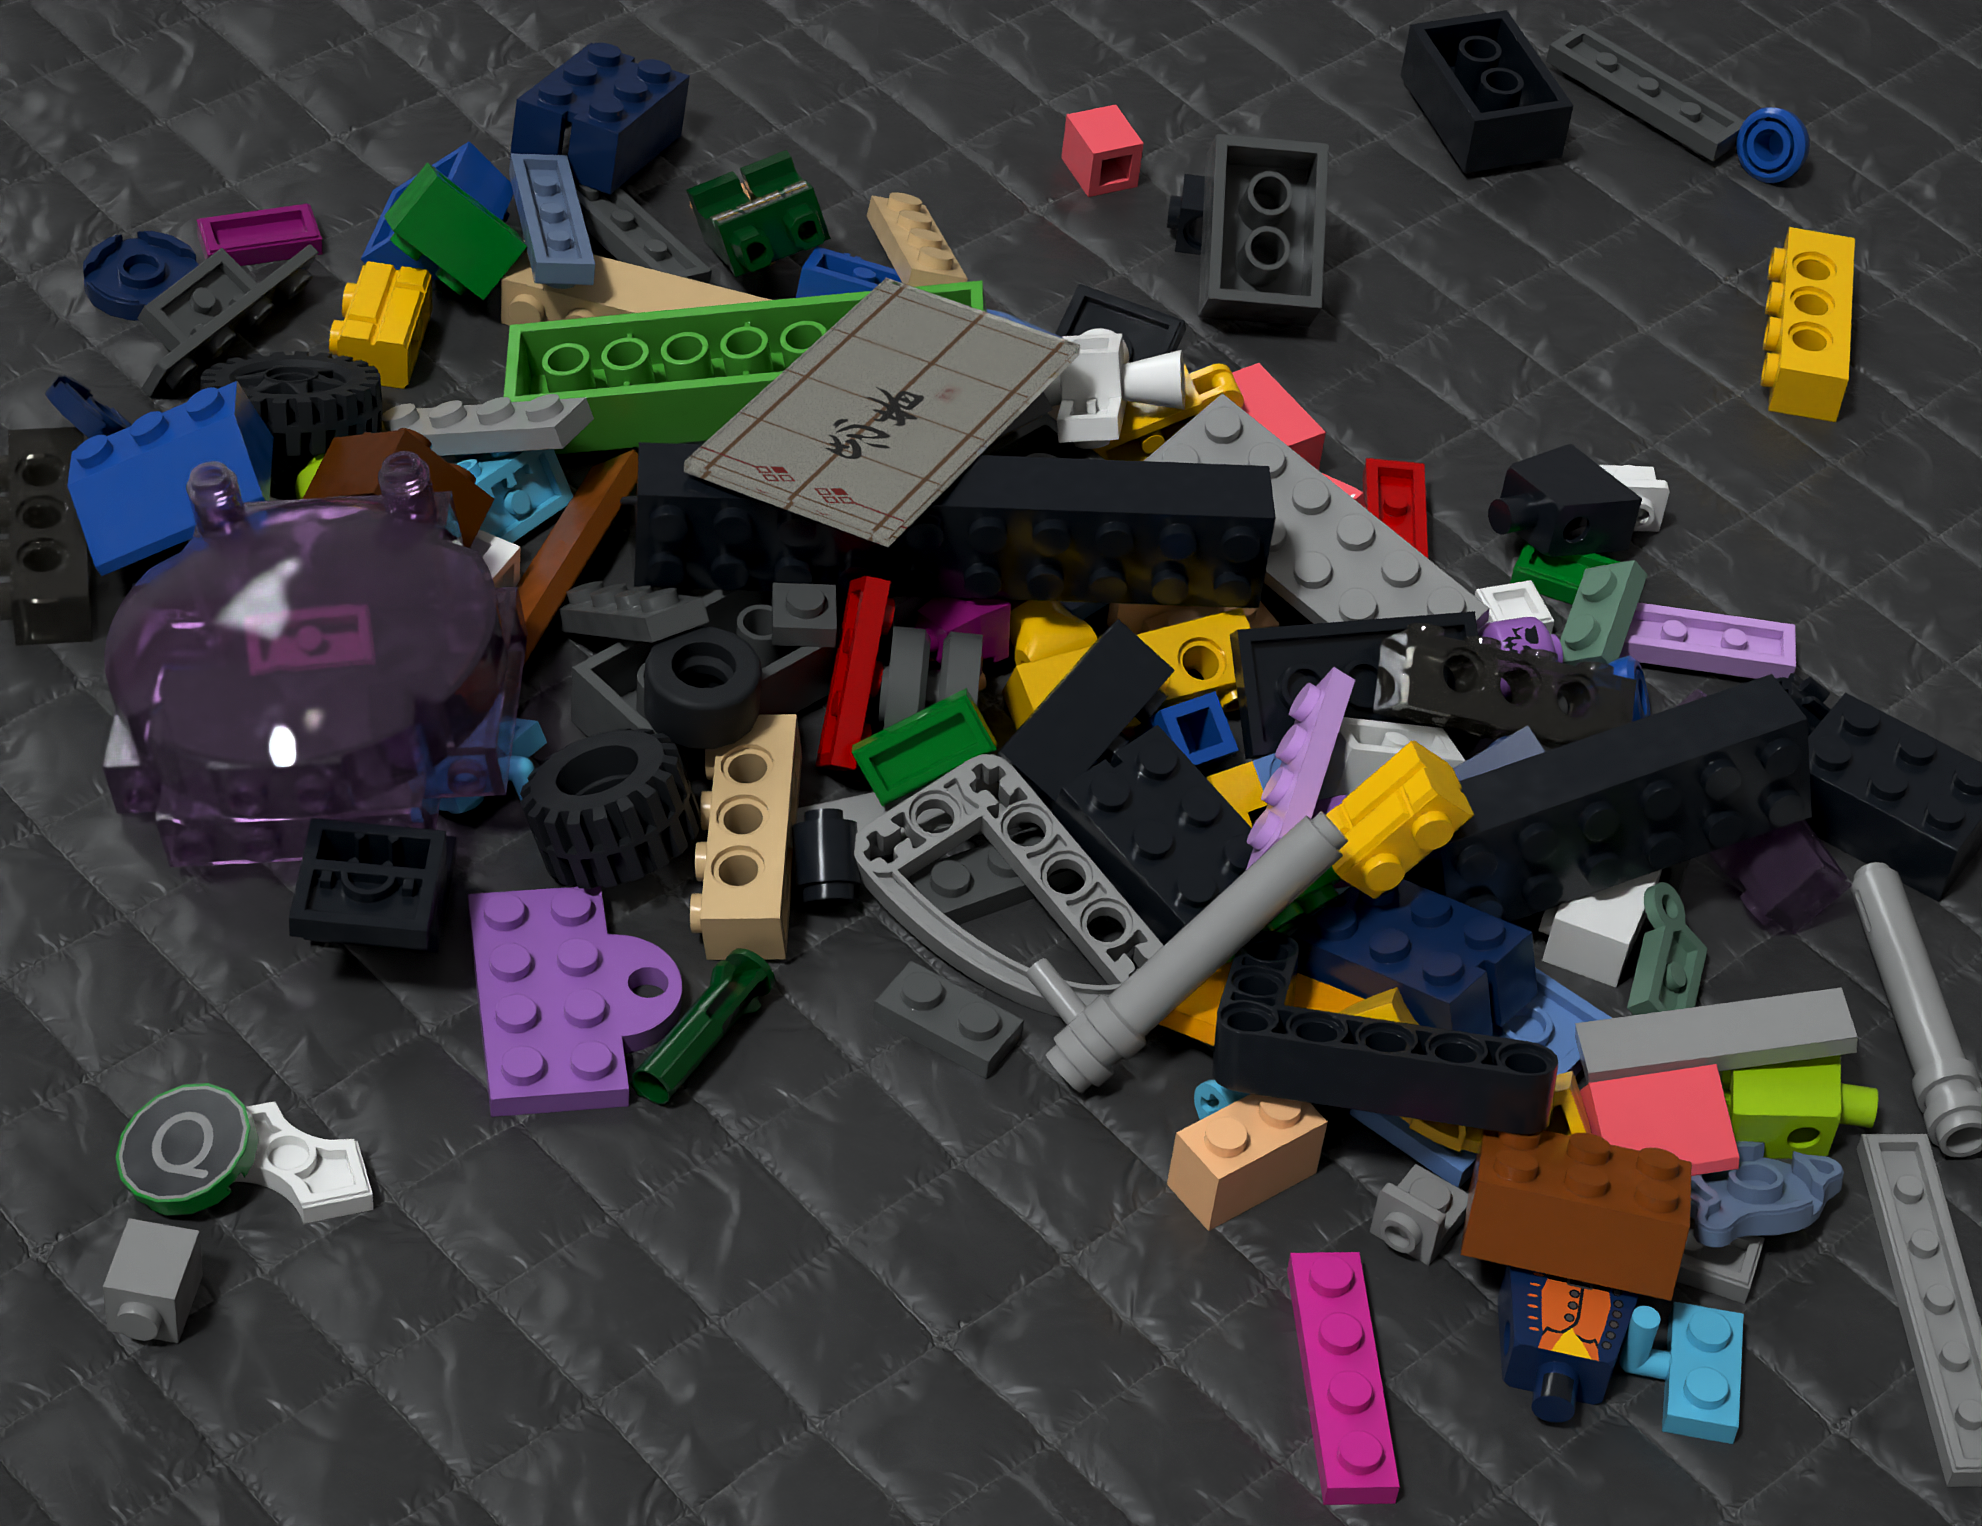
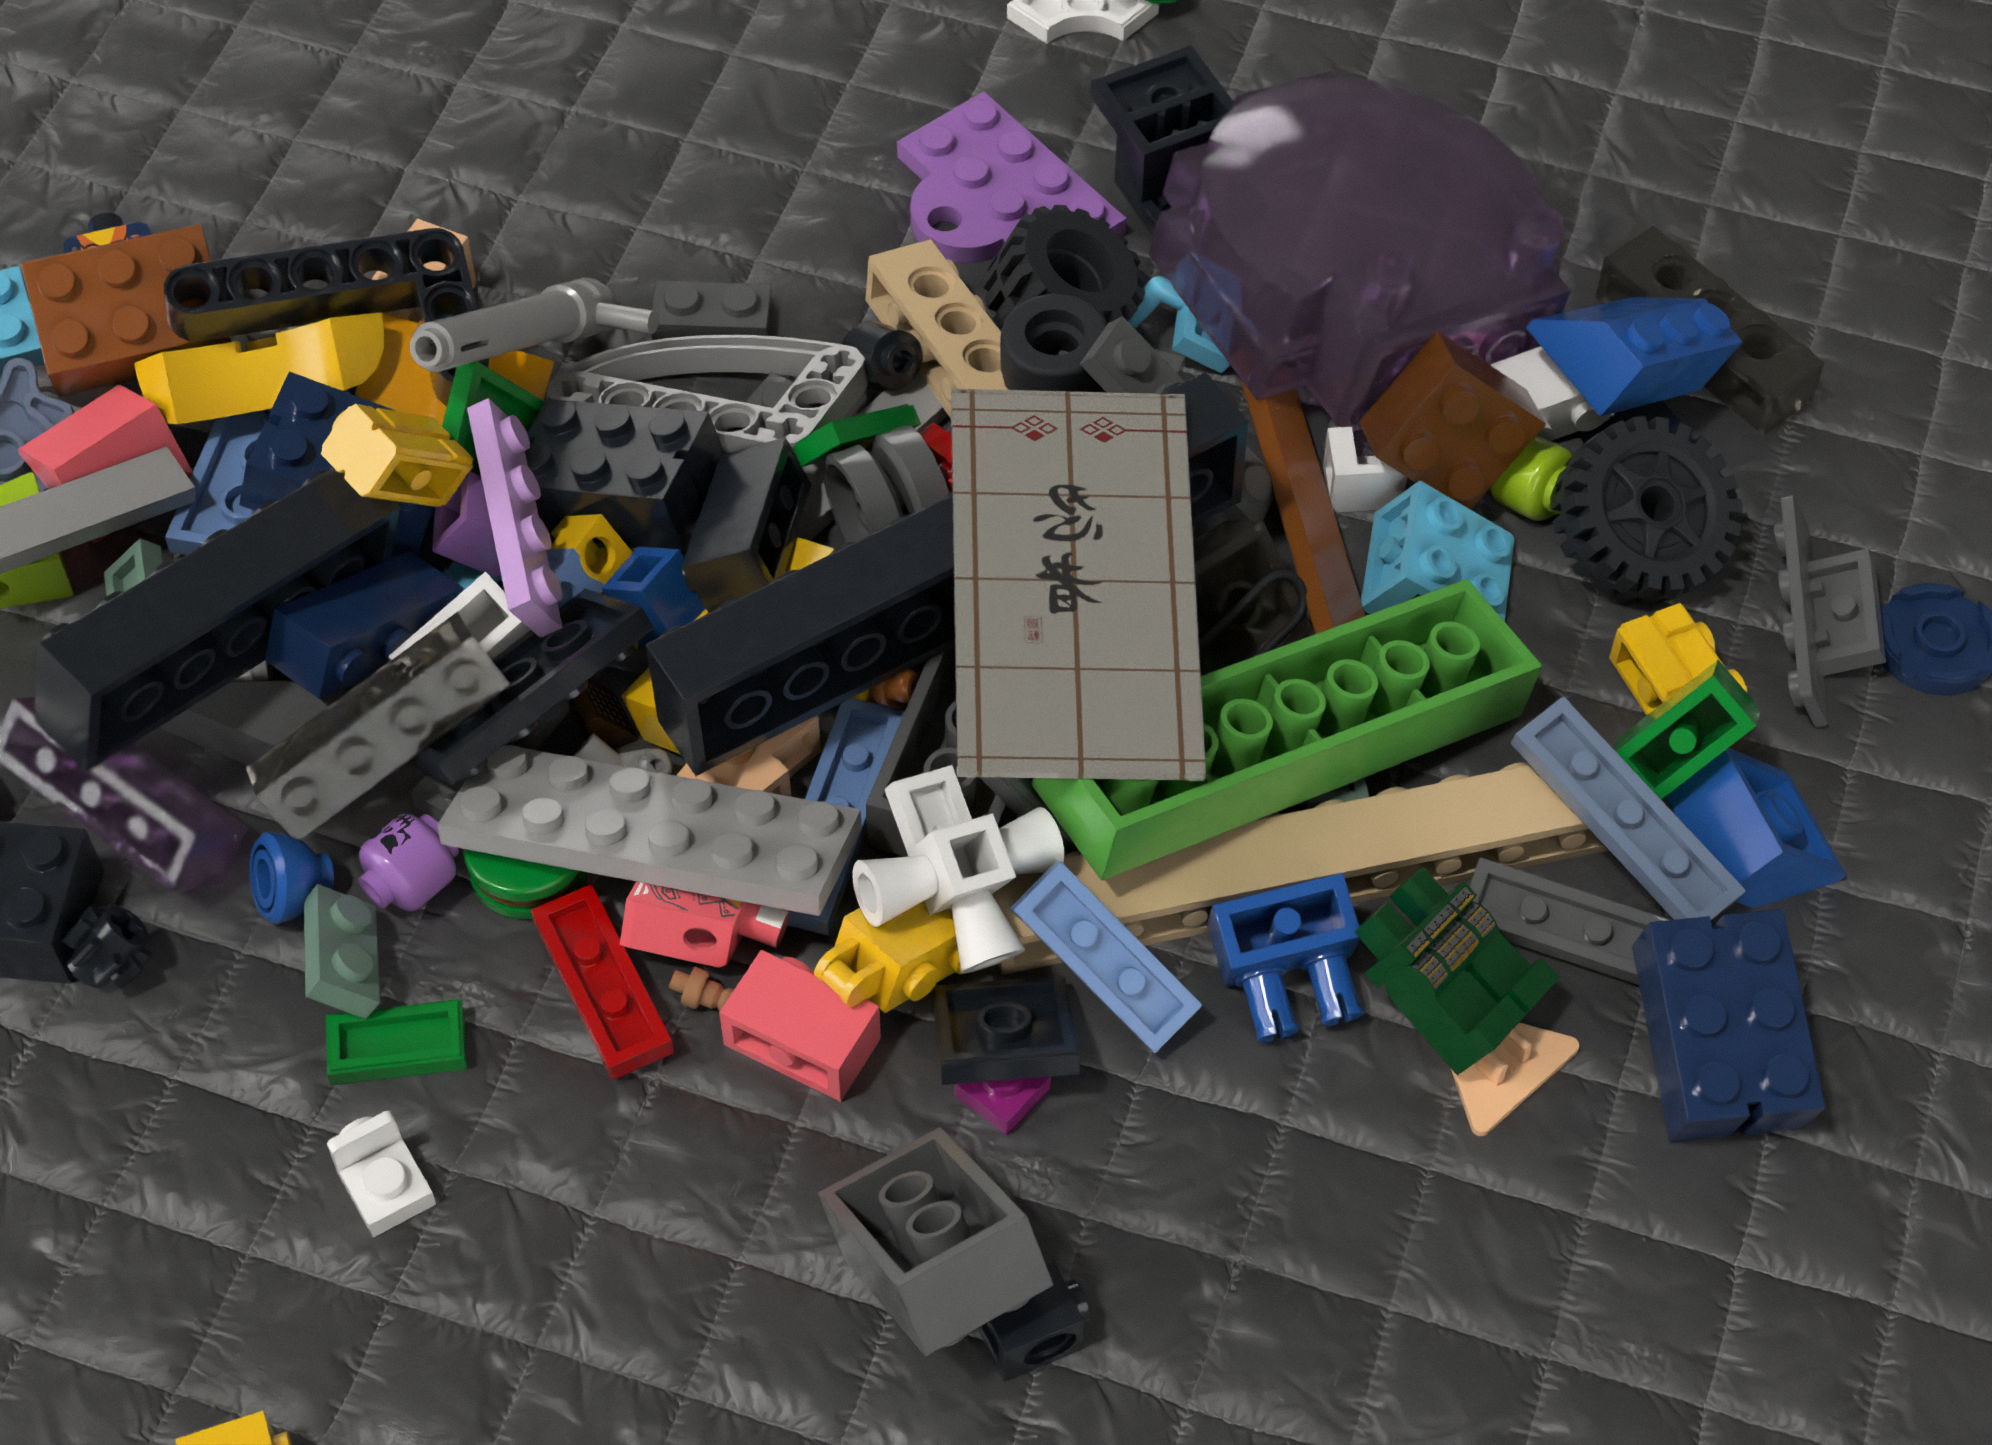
camera: 155 degrees right, 10 degrees up
(82, 410) = (1779, 381): dark blue tile -> none
(260, 234) = (1894, 742): magenta tile -> none
(494, 425) = (1453, 551): light grey plate -> none
(704, 1024) = (881, 198): dark green piece -> none
(913, 241) = (1281, 1027): tan plate -> none
(1102, 150) = (1216, 1356): coral brick -> none
(1342, 1379) = (266, 186): dark pink plate -> none
(1515, 601) = (441, 959): white tile -> none
(1565, 505) = (438, 1072): black torso -> none
(1710, 642) = (221, 1012): lavender plate -> none

